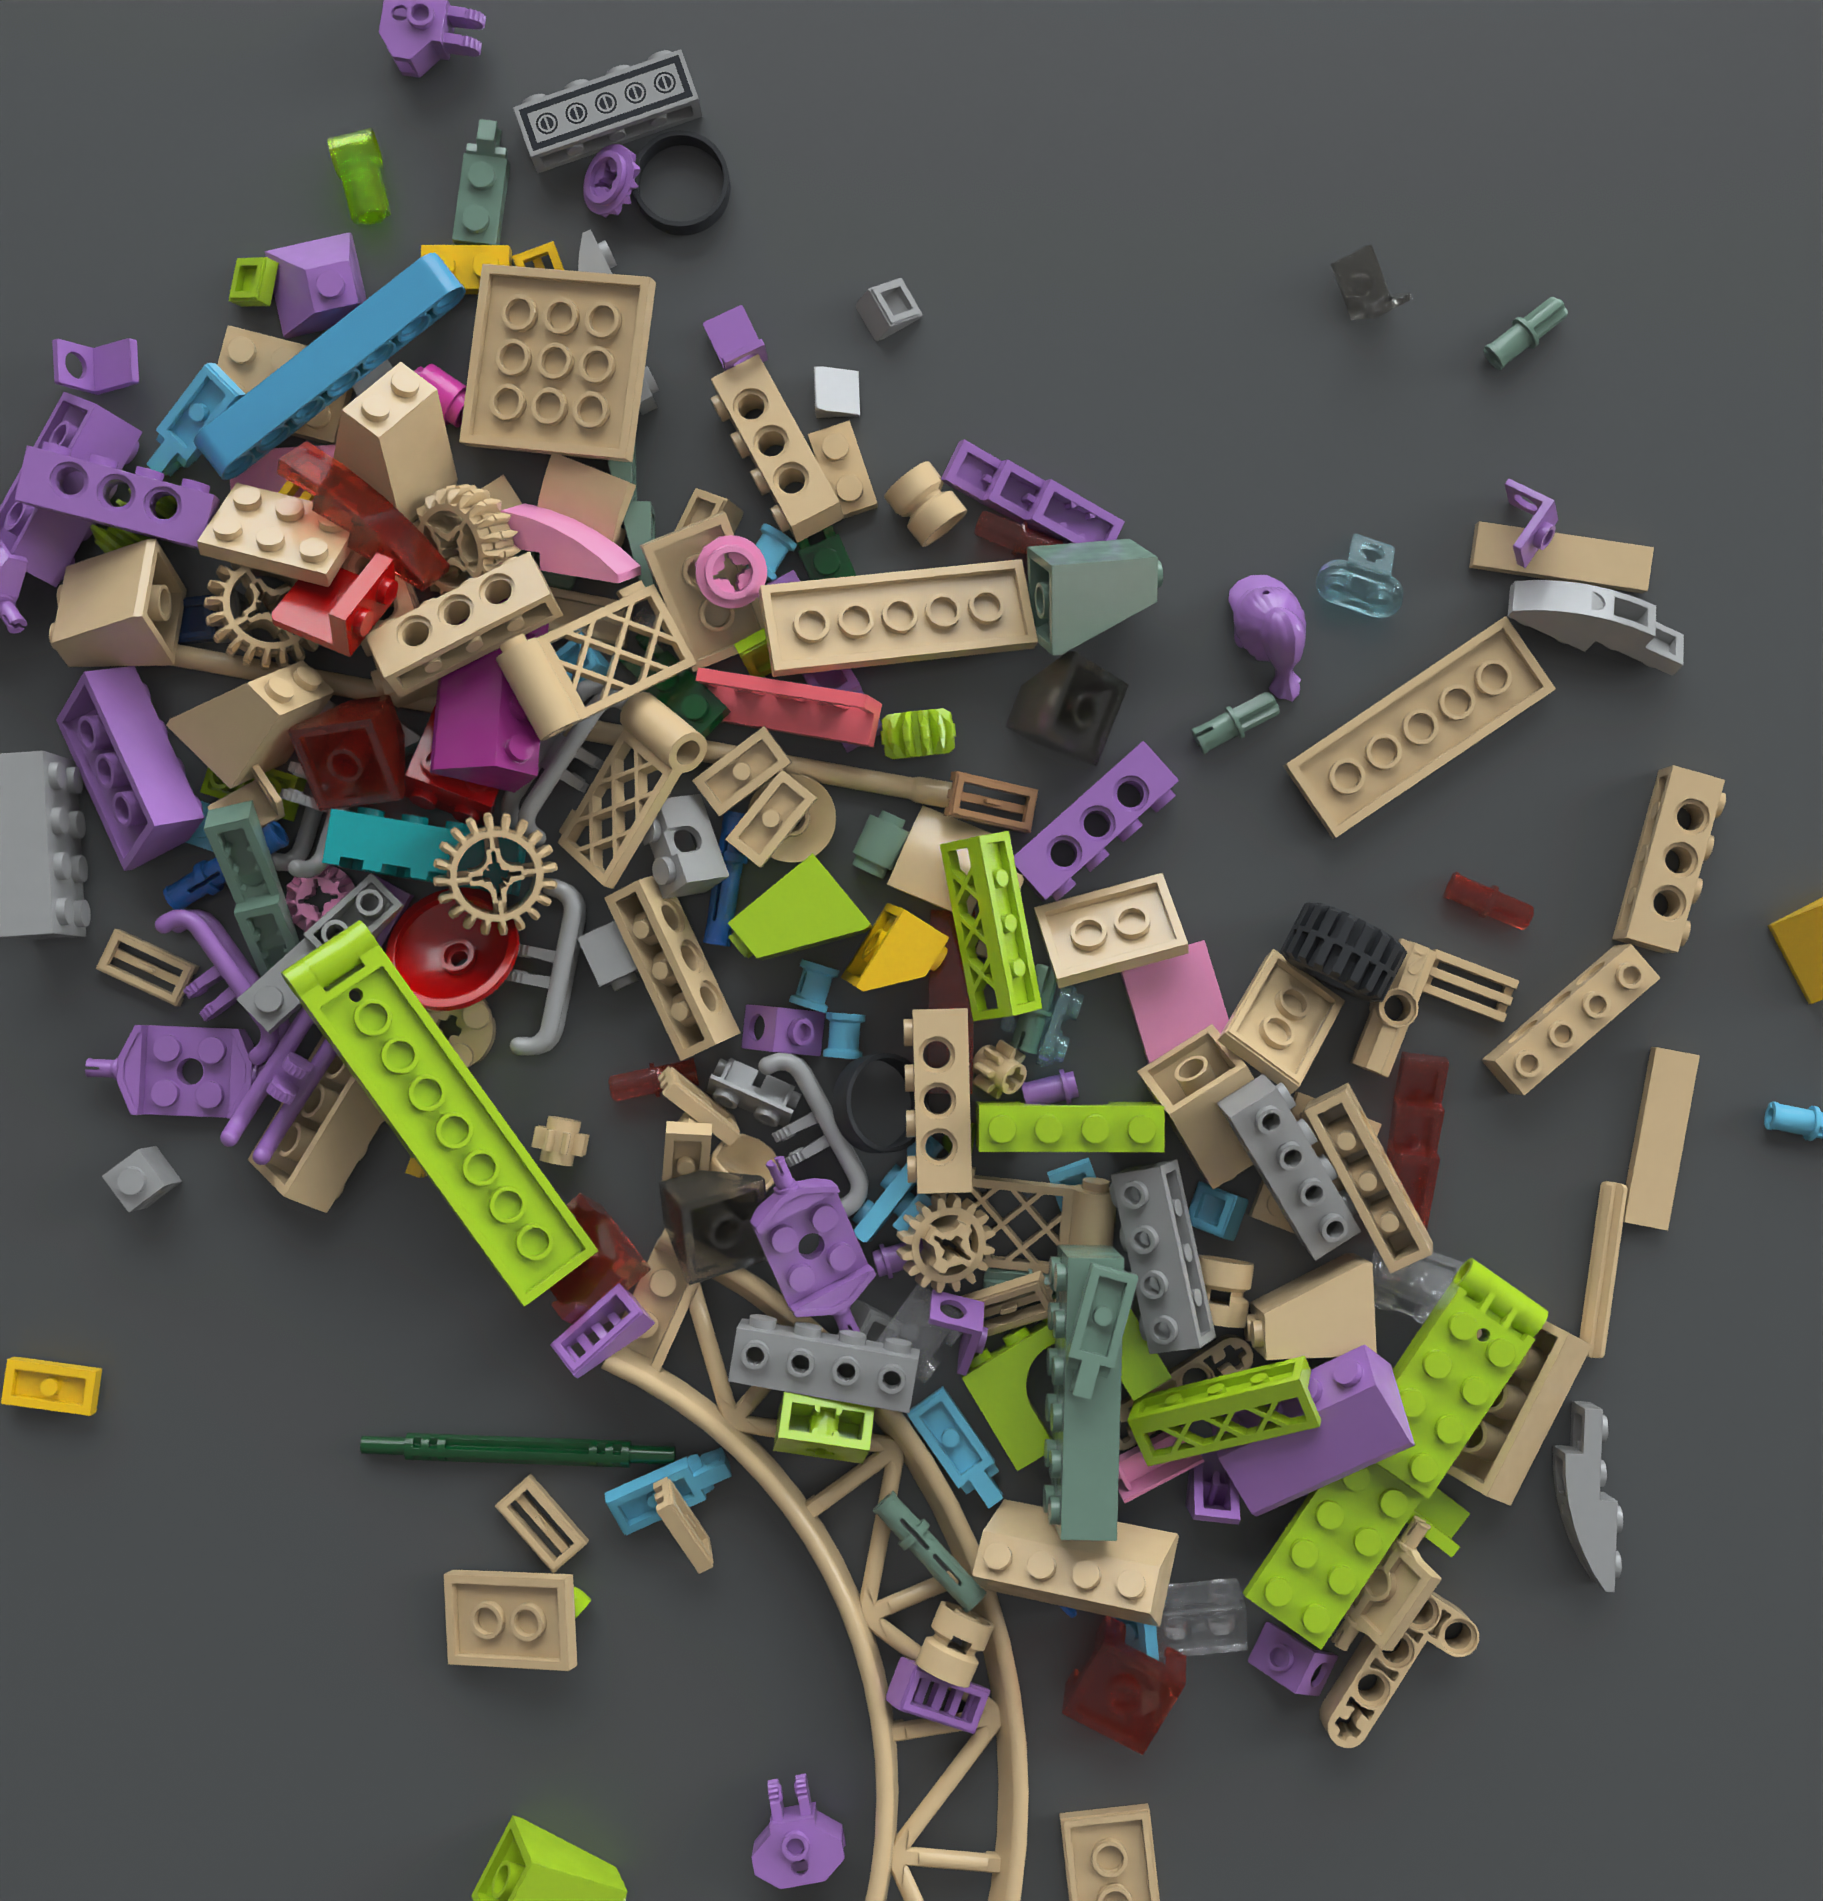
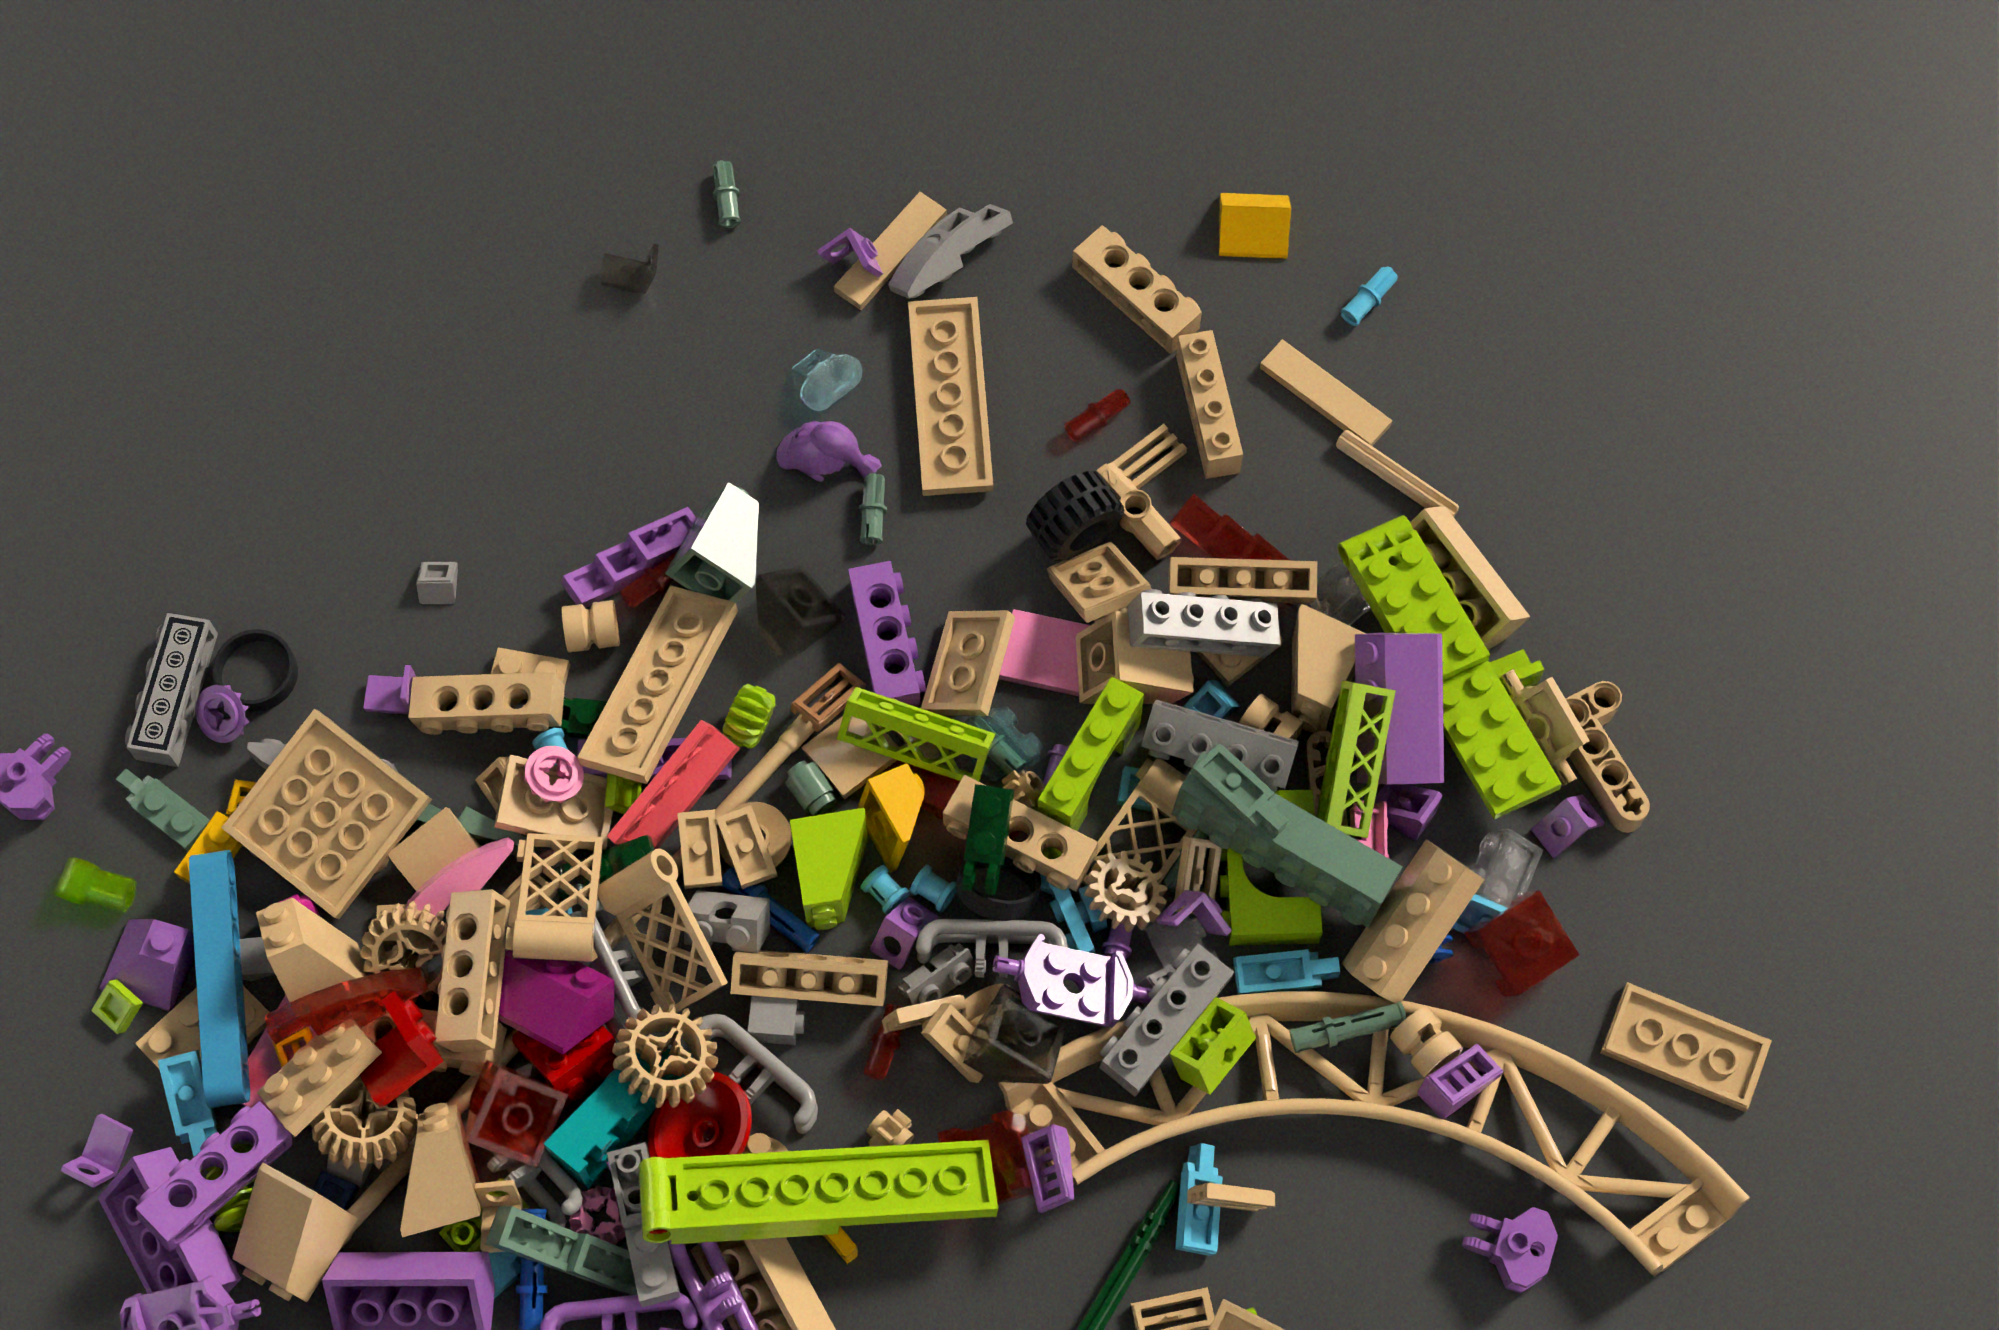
camera: 55 degrees left, 20 degrees down
(836, 392) = (472, 647): slope -> none
(912, 1072) = (987, 834): none -> dark green hinge
(1588, 1514) = (1564, 573): light grey slope -> none

